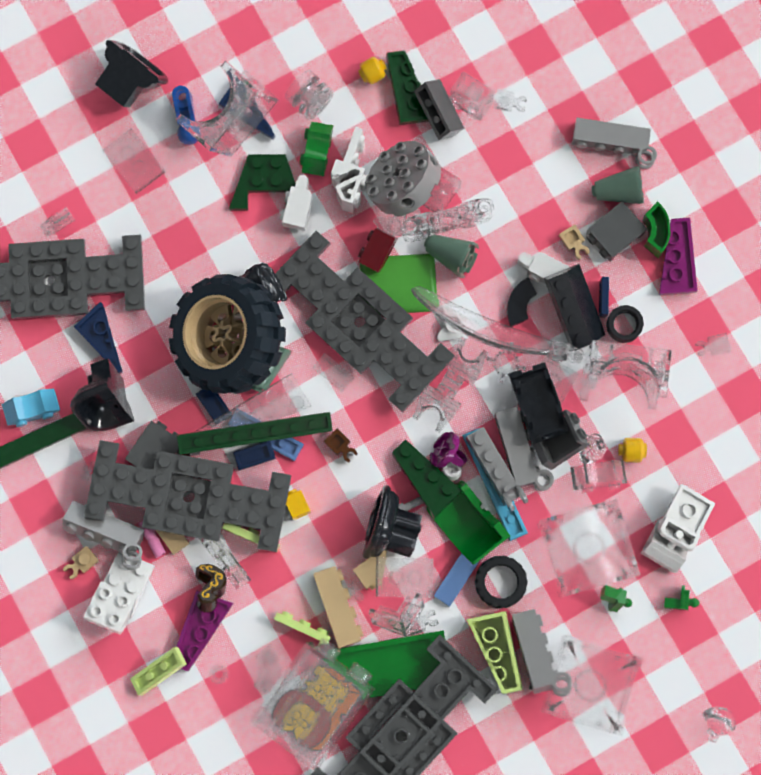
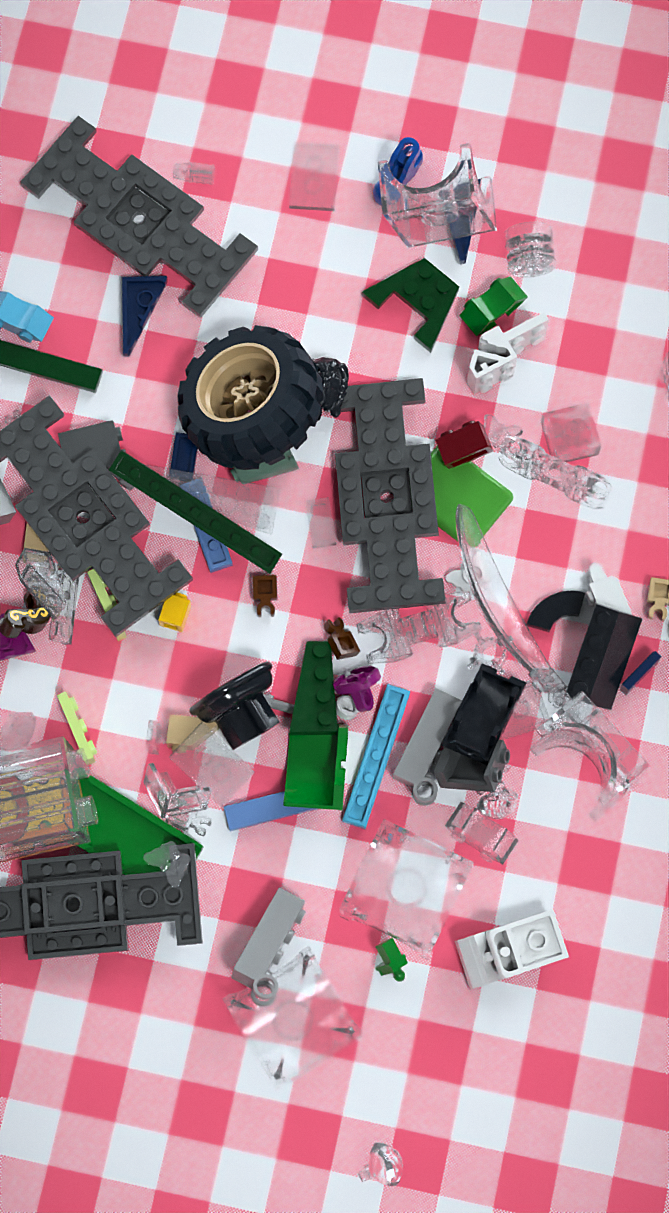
camera: 40 degrees right, 5 degrees down
(103, 401) = (86, 363): black piece -> none
(128, 73) = (379, 91): black piece -> none
(153, 541) = (15, 533): bright pink piece -> none
(200, 558) = (40, 578): none -> clear slope
(254, 455) = (178, 534): dark blue tile -> none
(298, 205) = (426, 341): white hinge -> none
(337, 607) = (125, 738): tan brick -> none
(372, 70) = (611, 278): yellow head -> none
(403, 85) = (625, 331): dark green wing -> none
(403, 178) = (545, 396): light grey brick -> none
(412, 434) = (341, 642): none -> reddish brown plate
(439, 109) = (641, 365): dark grey brick -> none
(444, 661) = (160, 858): none -> clear animal
(453, 253) = (532, 509): sand green cone -> none
(495, 468) = (388, 737): light grey hinge -> none
(498, 649) = (237, 908): yellowish green wedge -> none
(521, 587) = (298, 824): black tyre -> none
(629, 310) = (650, 701): black tyre -> none
(632, 450) = (536, 839): yellow head -> none
(683, 603) = (453, 1024): green piece -> none

